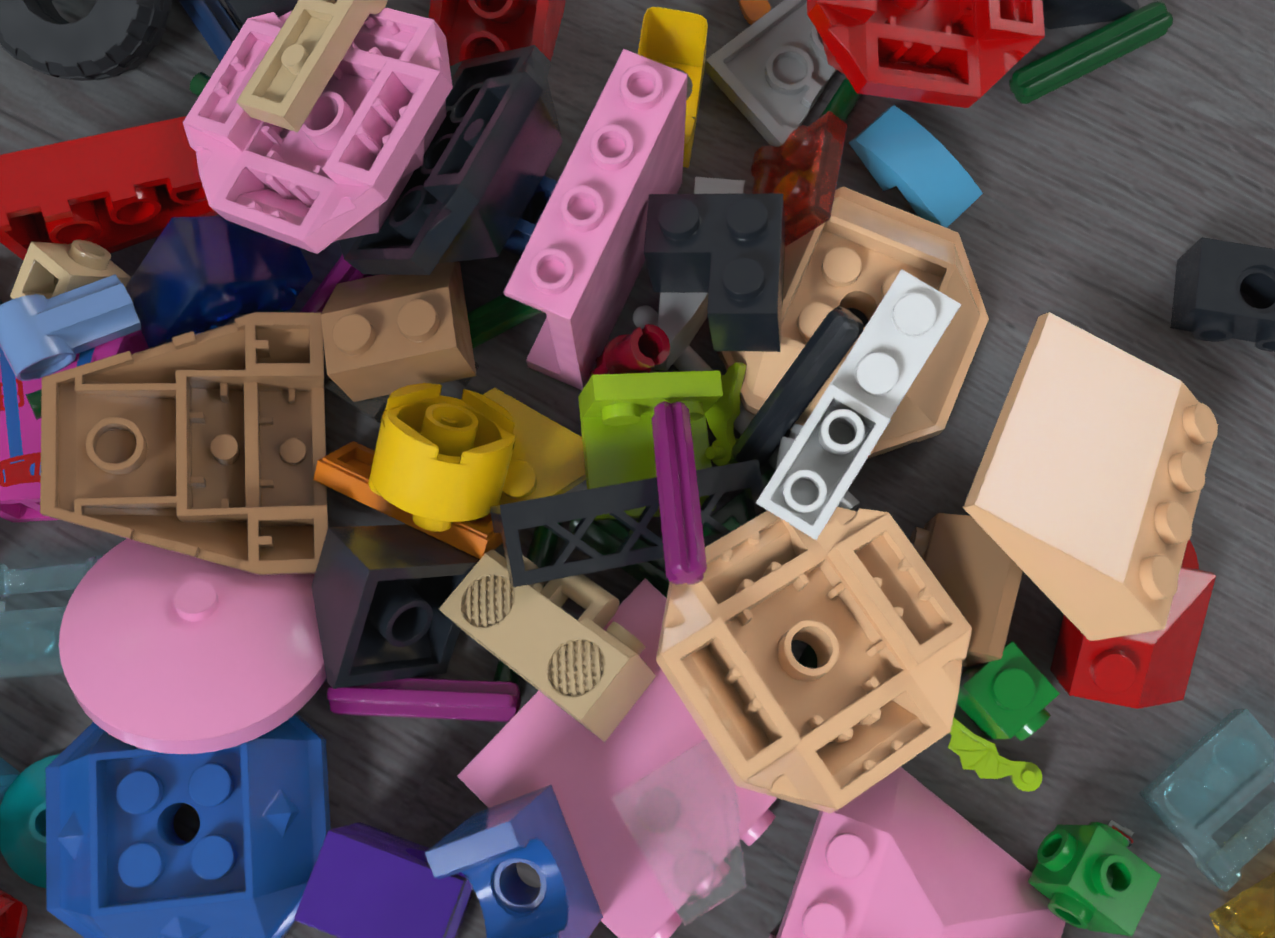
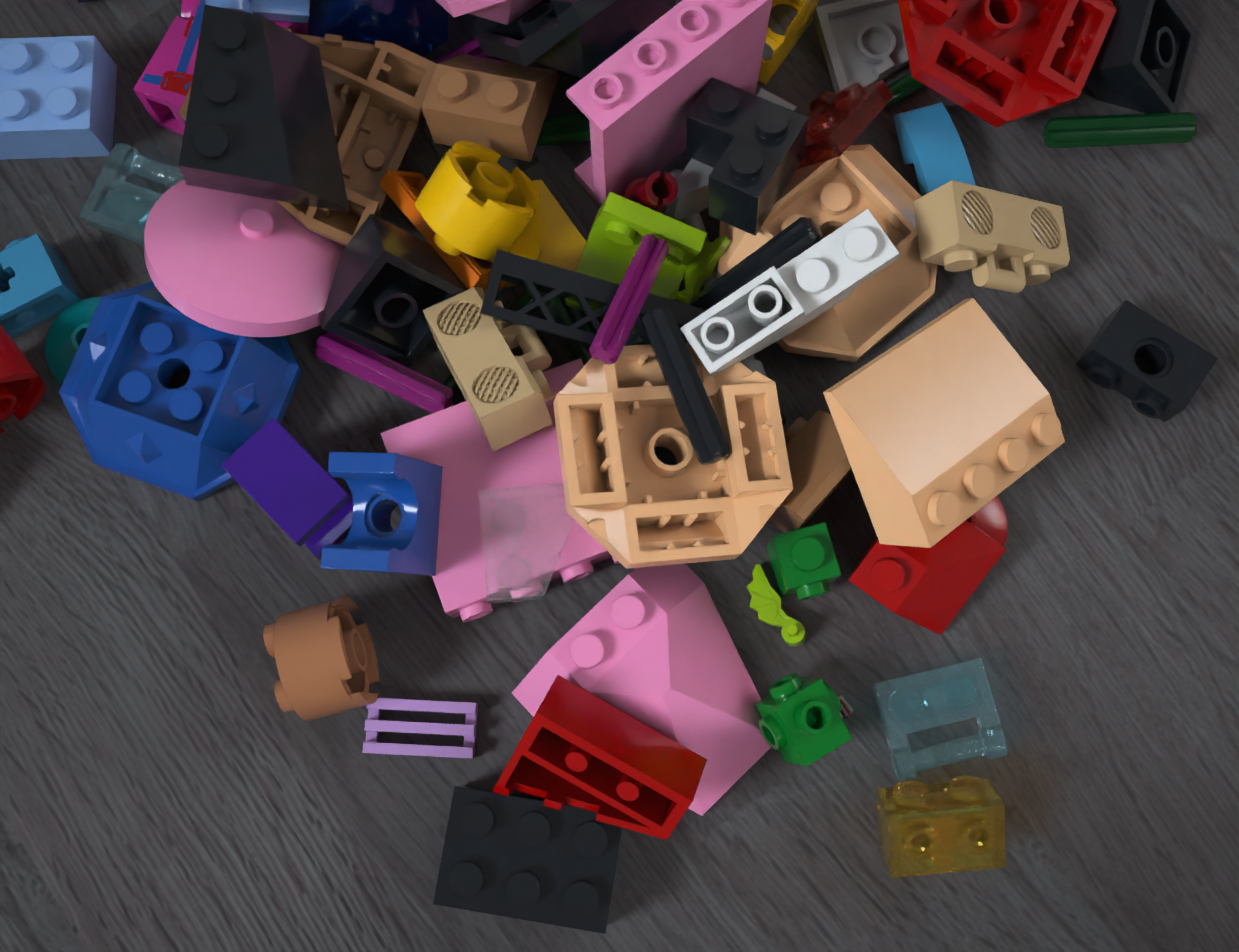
camera: 25 degrees right, 0 degrees up
(141, 472) = (260, 115): none -> black wedge
(794, 566) = (685, 386): none -> black axle
(1029, 233) = (993, 233): none -> tan piece

